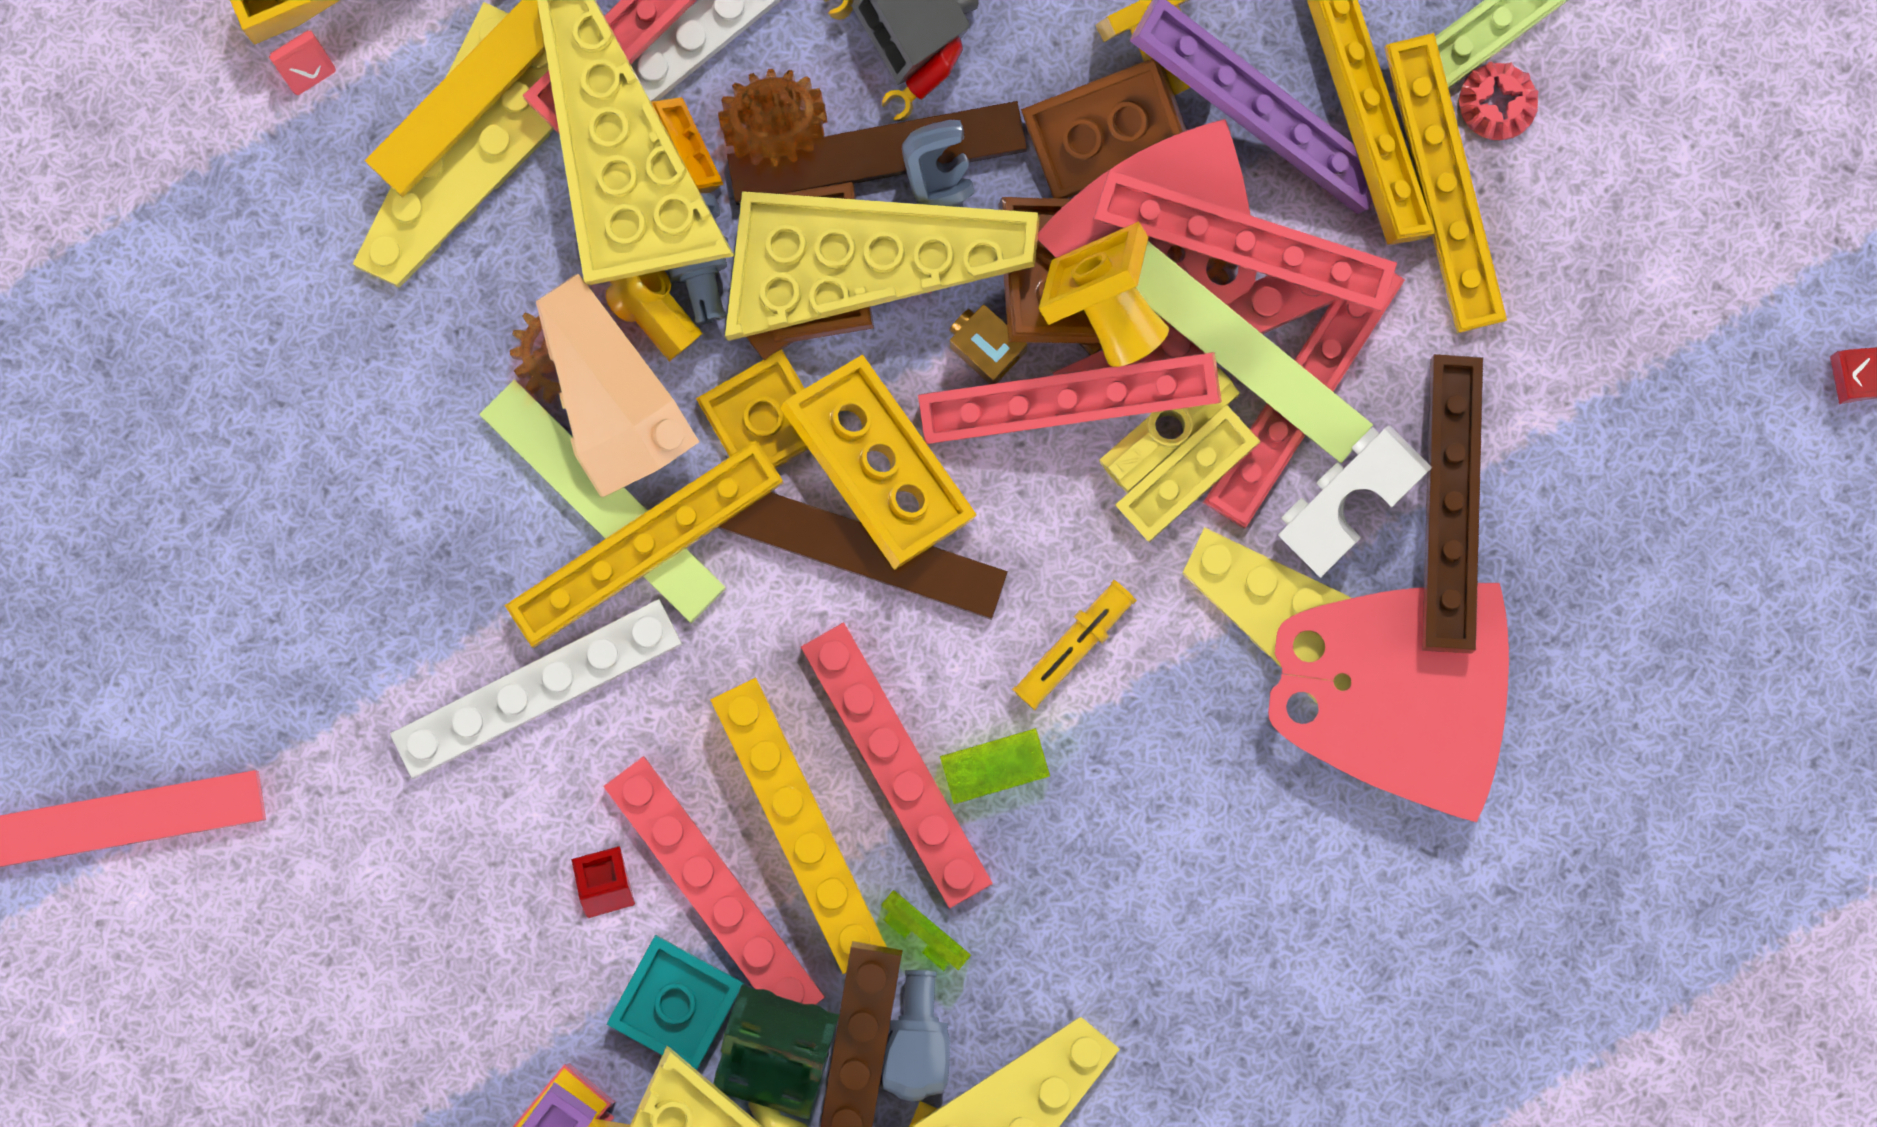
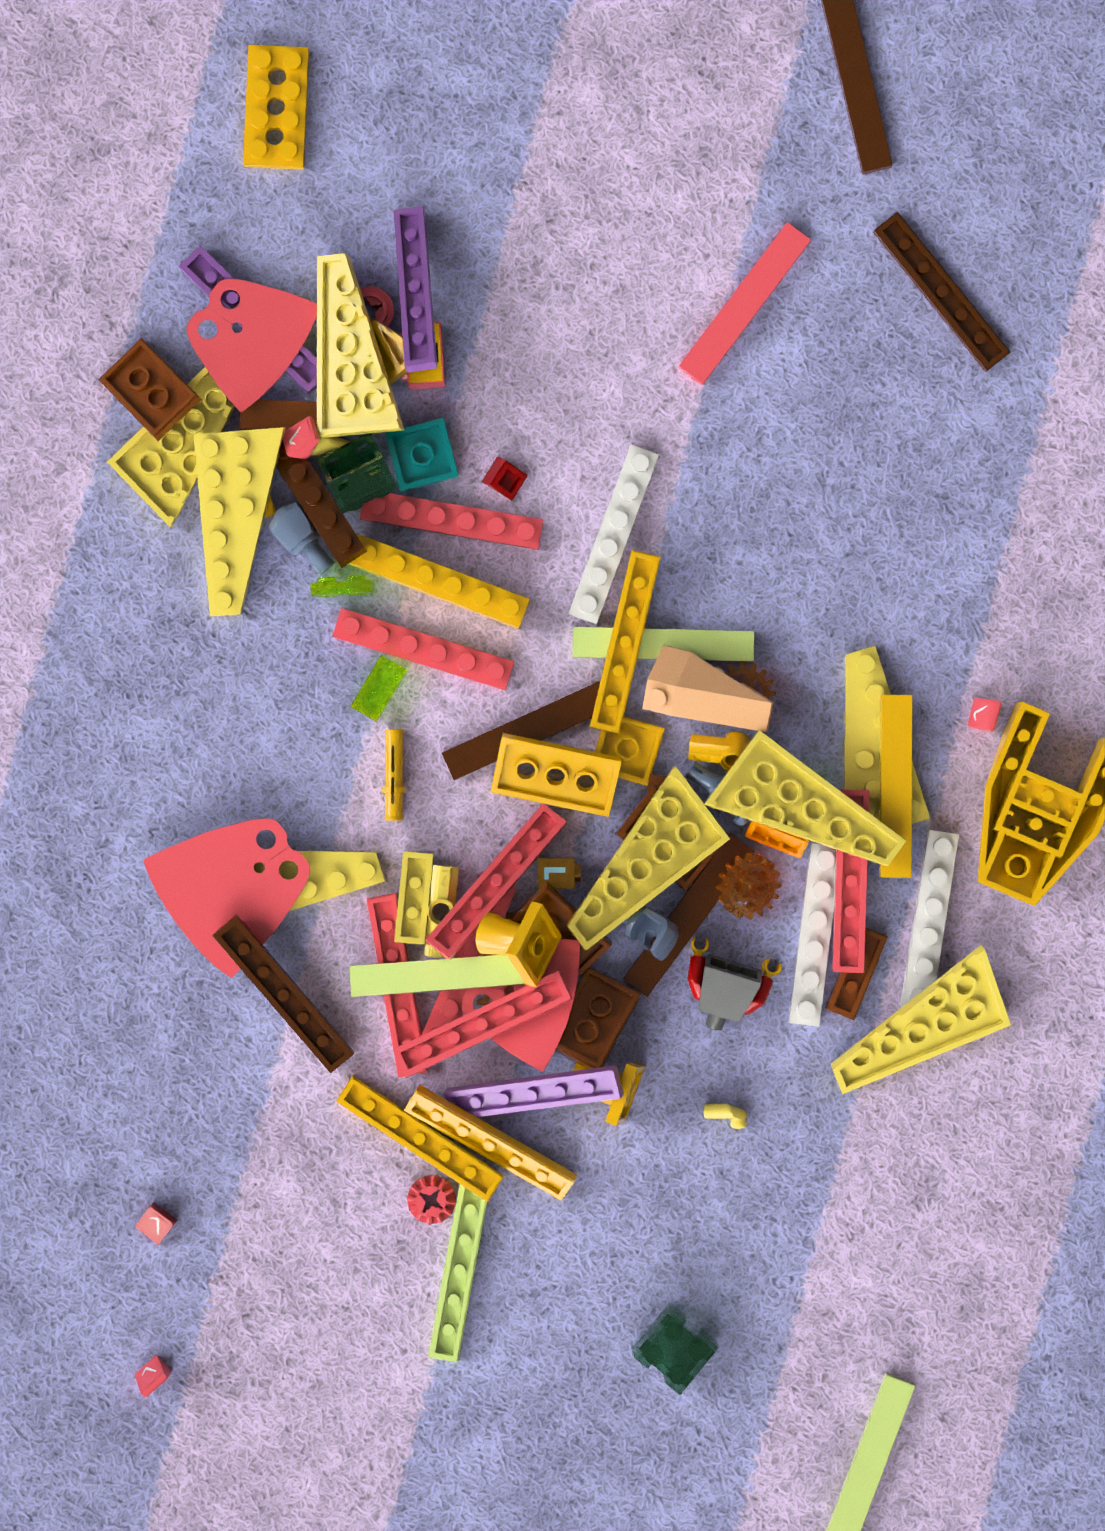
camera: 130 degrees right, 5 degrees up
(1319, 529) = (328, 980): white arch -> none

